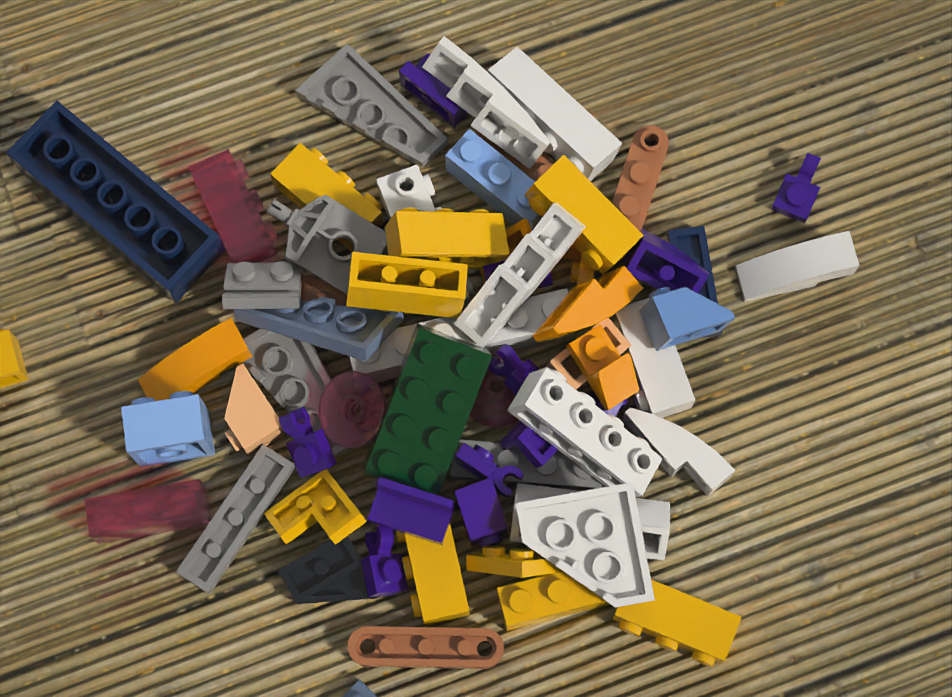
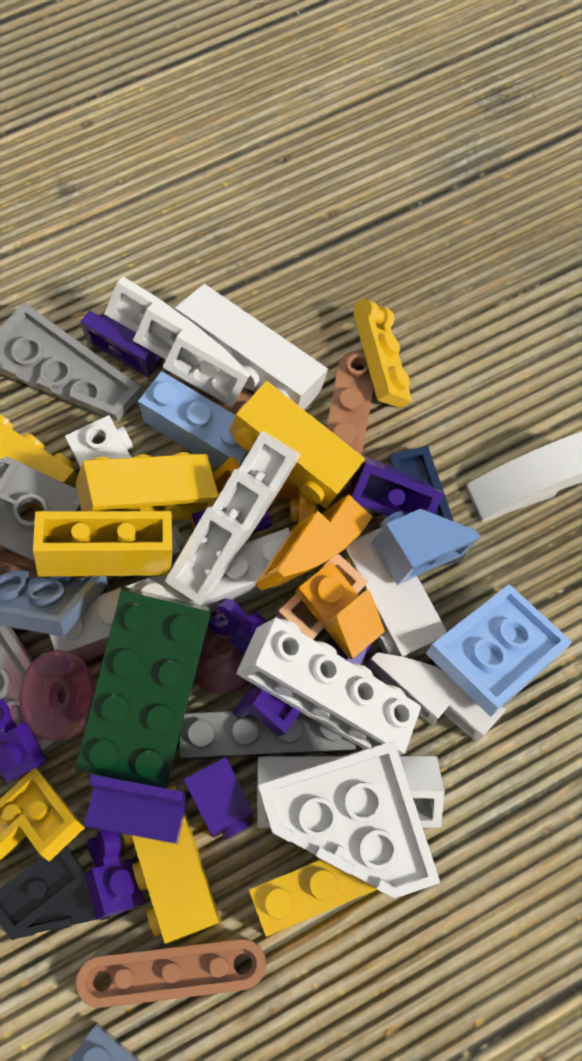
camera: 10 degrees left, 5 degrees down
(479, 463) = (212, 739): dark purple plate -> none
(516, 563) = (264, 858): yellow plate -> none
(675, 131) = (382, 353): none -> yellow plate
(683, 623) = (476, 900): yellow brick -> none
(738, 417) = (498, 649): none -> light blue plate
(797, 193) = (519, 402): dark purple plate -> none

